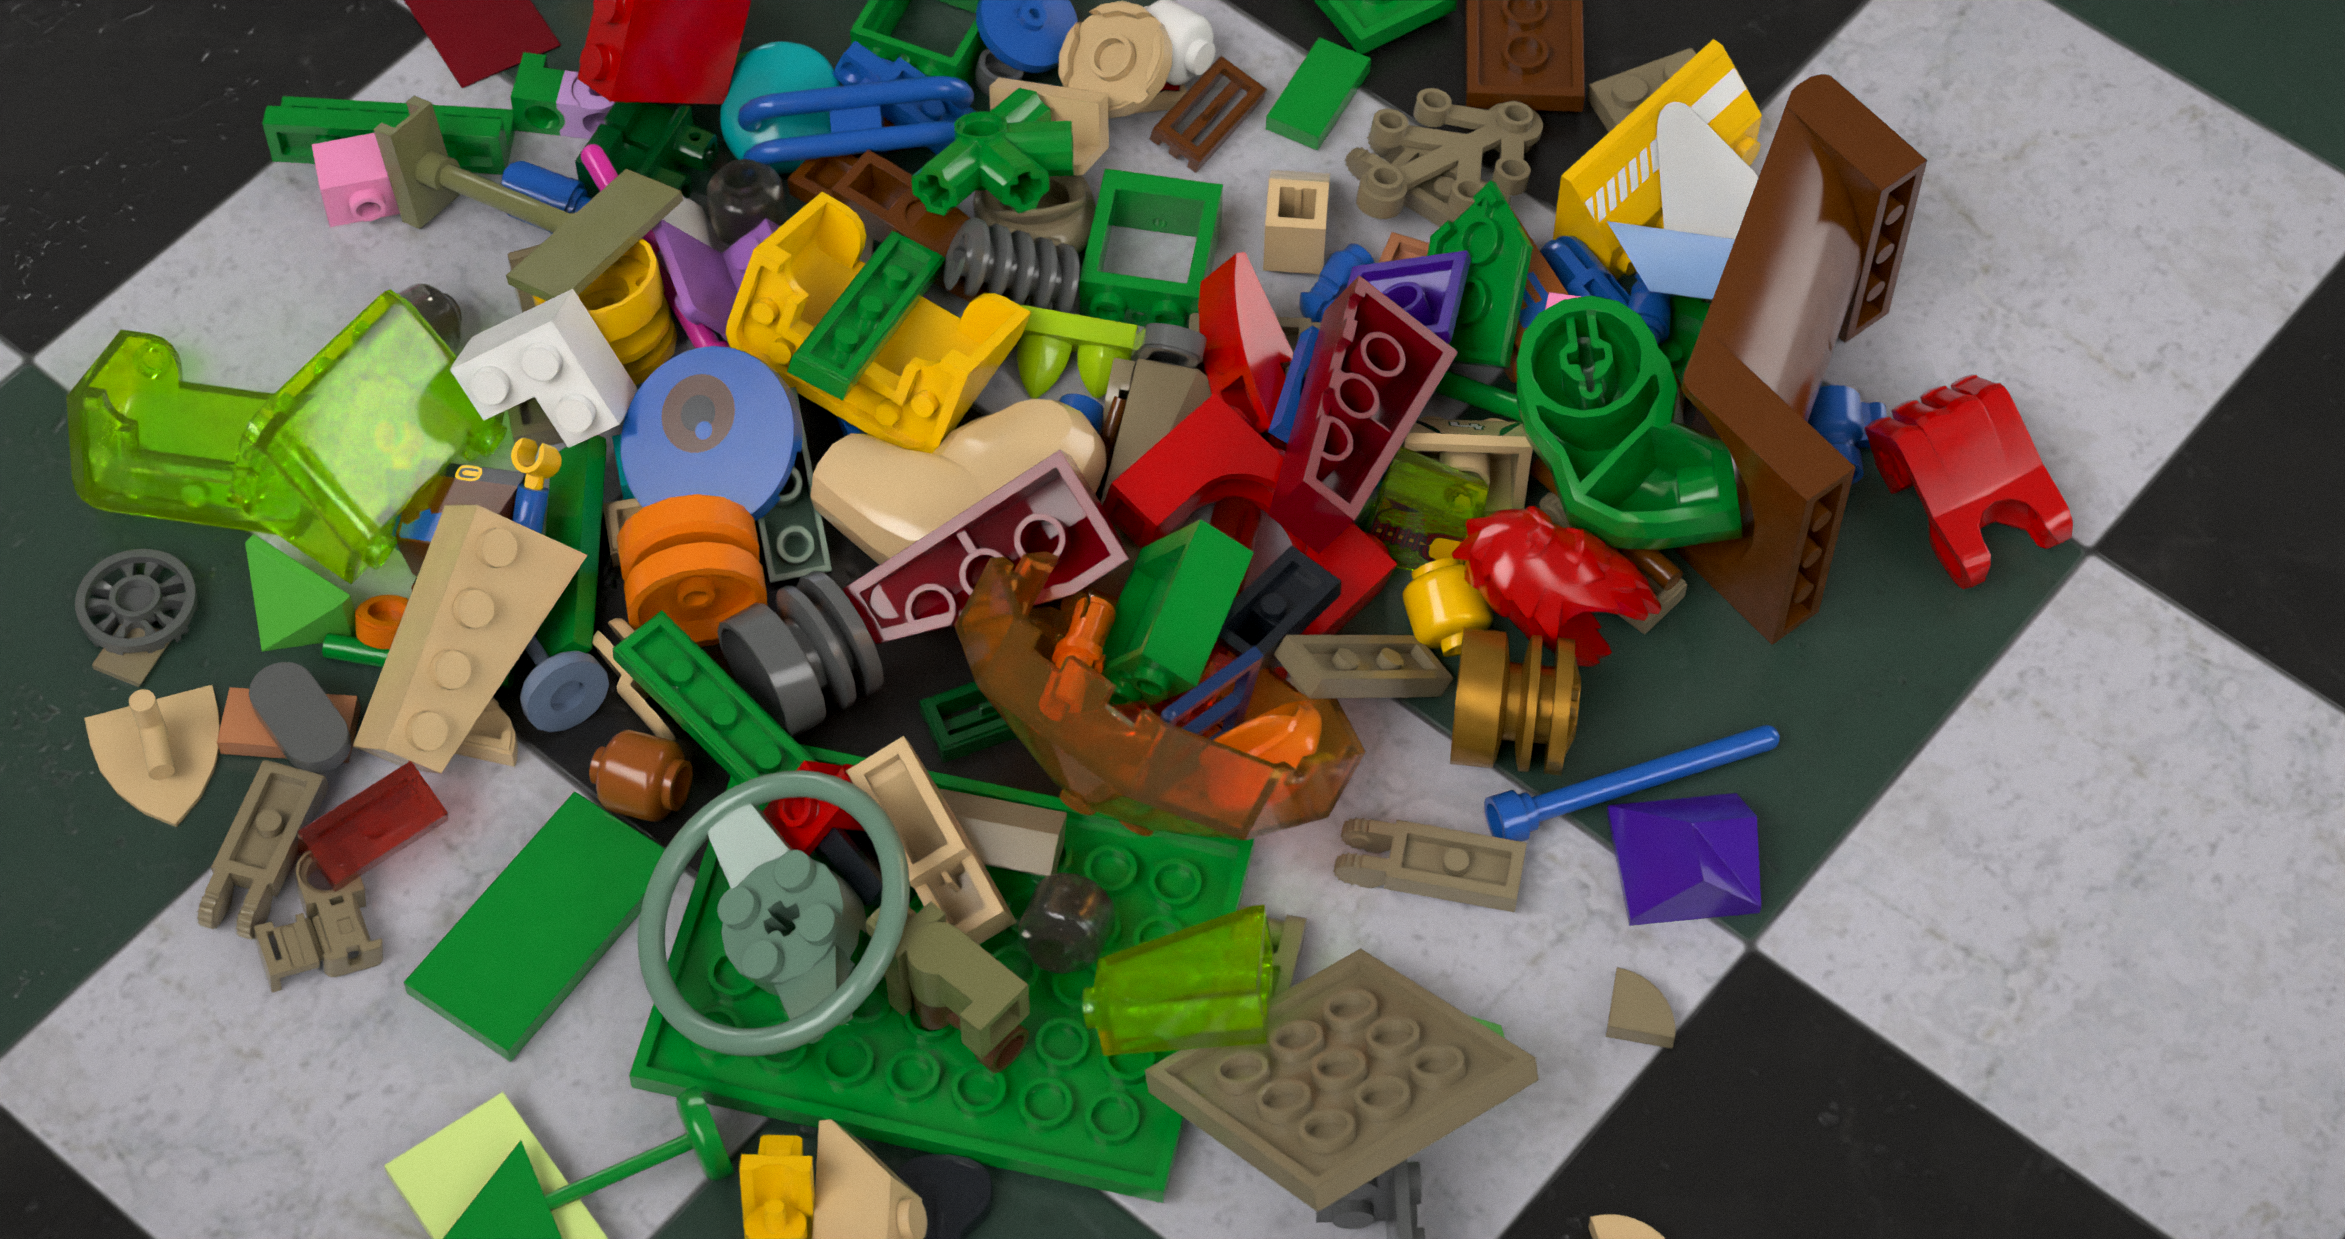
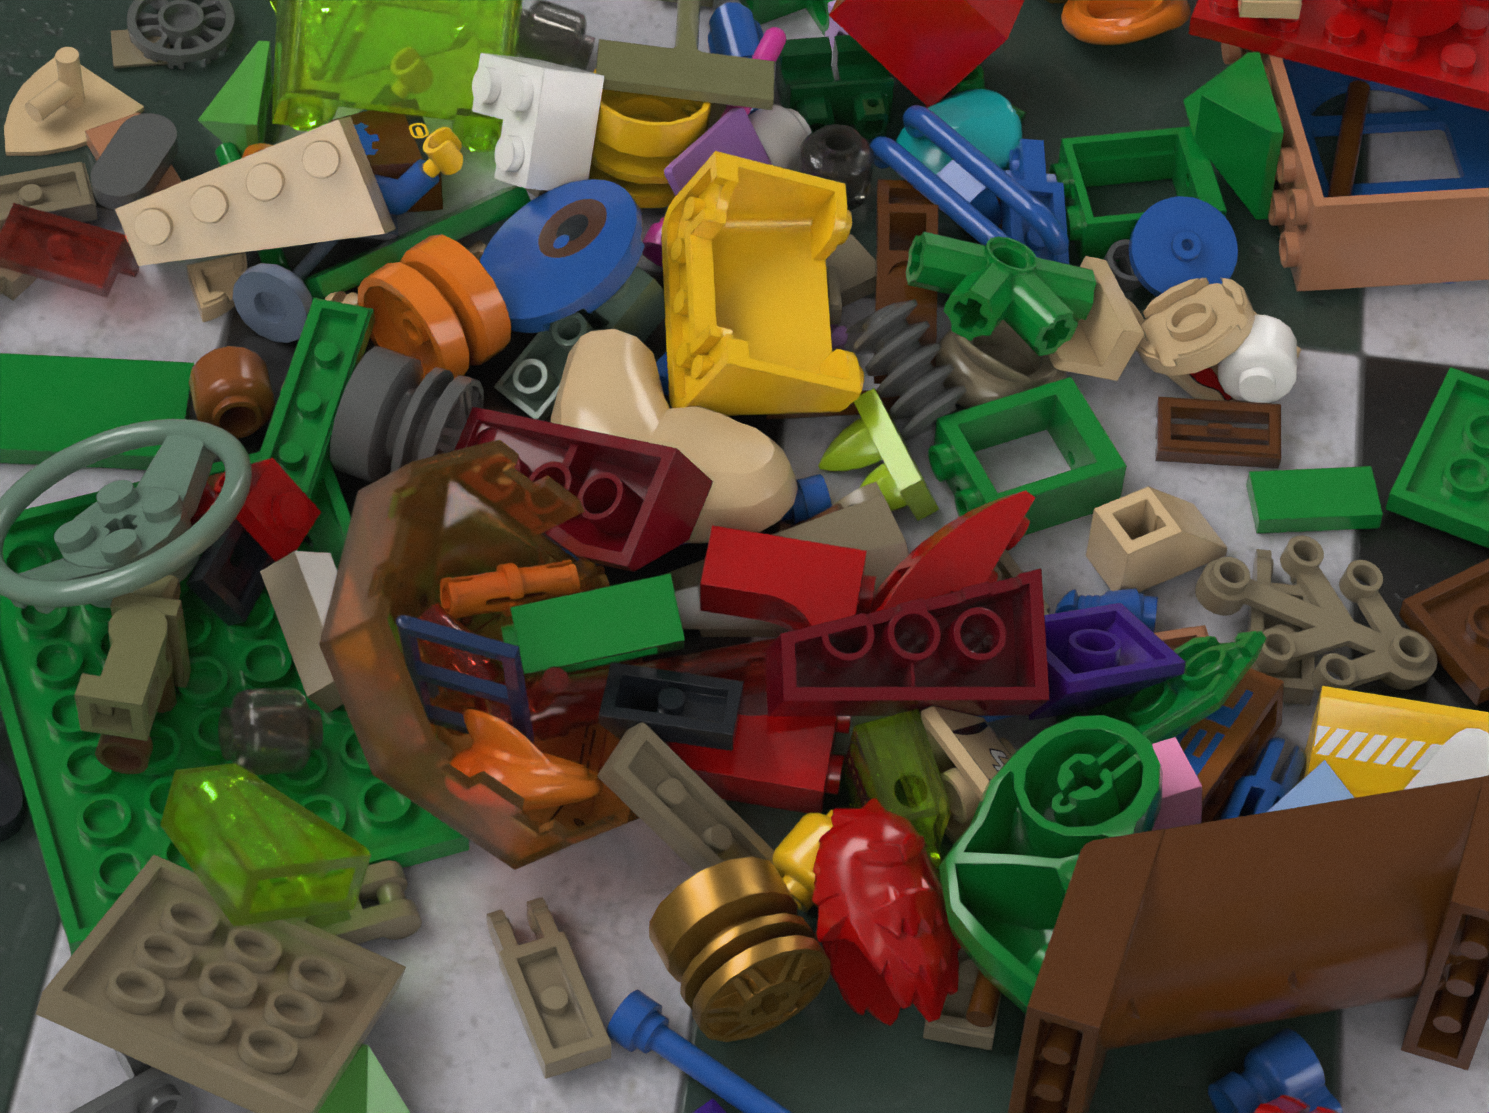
camera: 55 degrees right, 5 degrees down
(866, 315) = (756, 282): green tile -> none
(937, 850) = (261, 593): tan slope -> none
(1169, 345) = (903, 506): dark grey tile -> none

